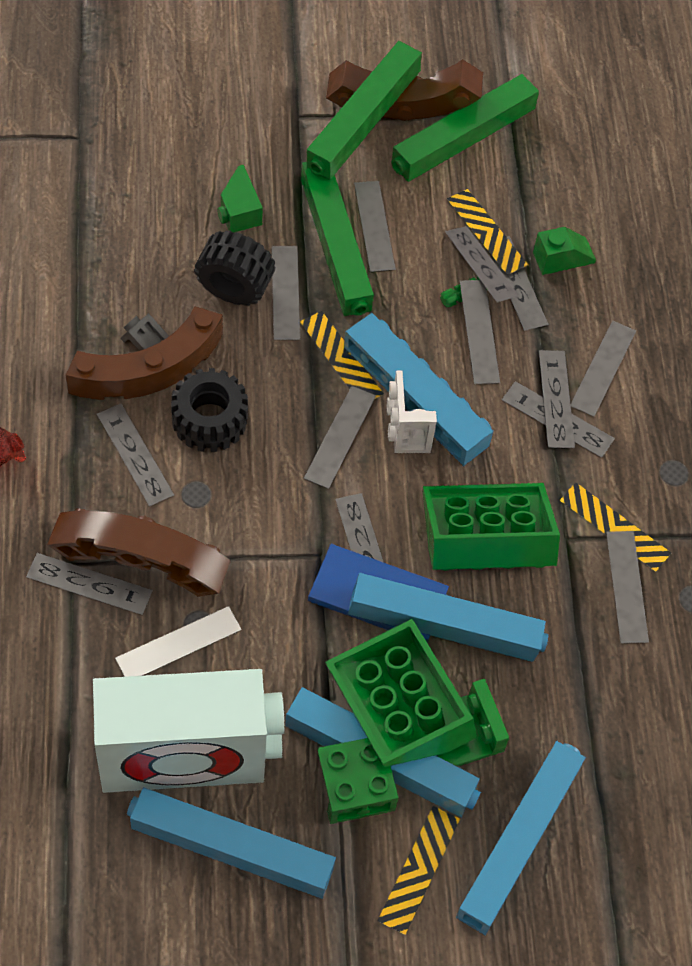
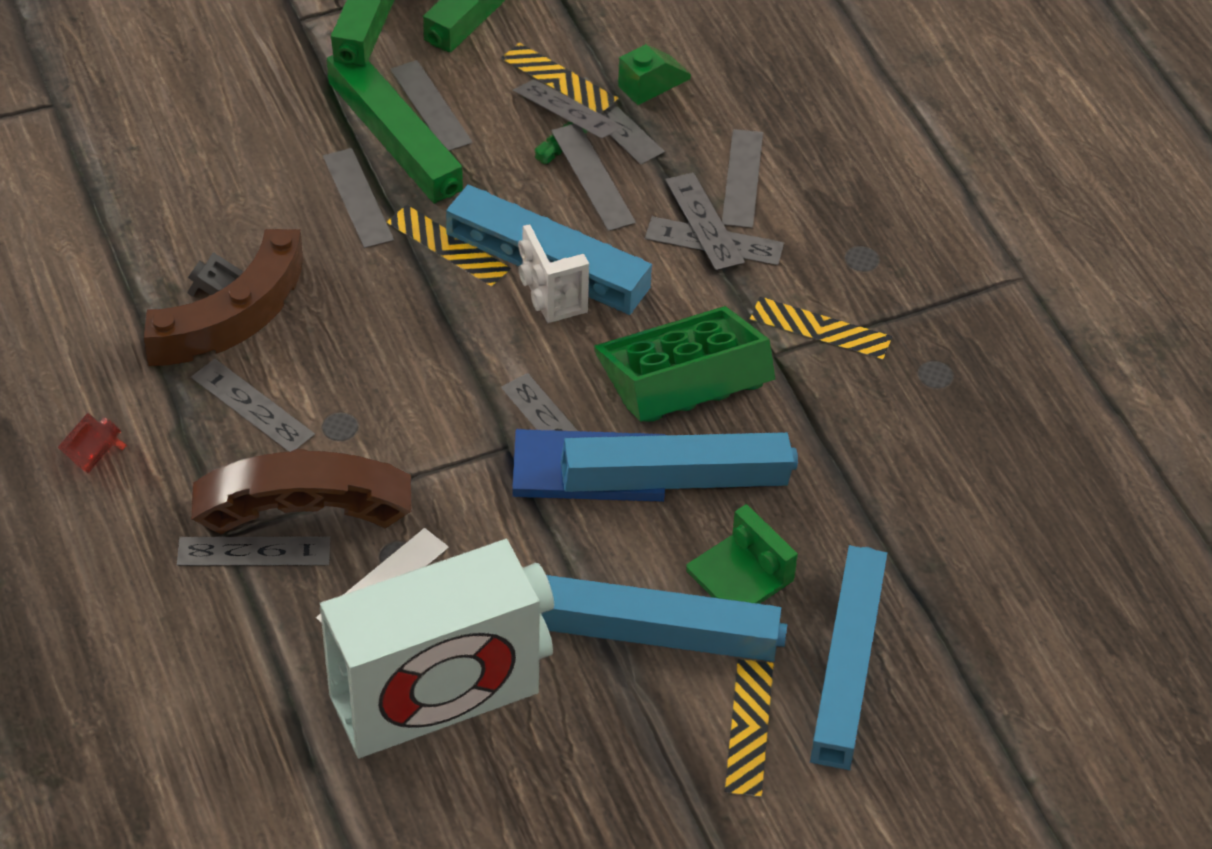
camera: 15 degrees left, 10 degrees down
(209, 430) = (323, 353): black tyre -> none
(231, 842) = (529, 758): dark azure brick -> none
(235, 268) = (295, 179): black tyre -> none
(240, 203) = (272, 119): green slope -> none
(340, 437) = (480, 324): flat silver sticker -> none
(356, 781) = (648, 651): green bracket -> none
(402, 696) = (665, 547): green slope -> none
(627, 587) = (859, 382): flat silver sticker -> none

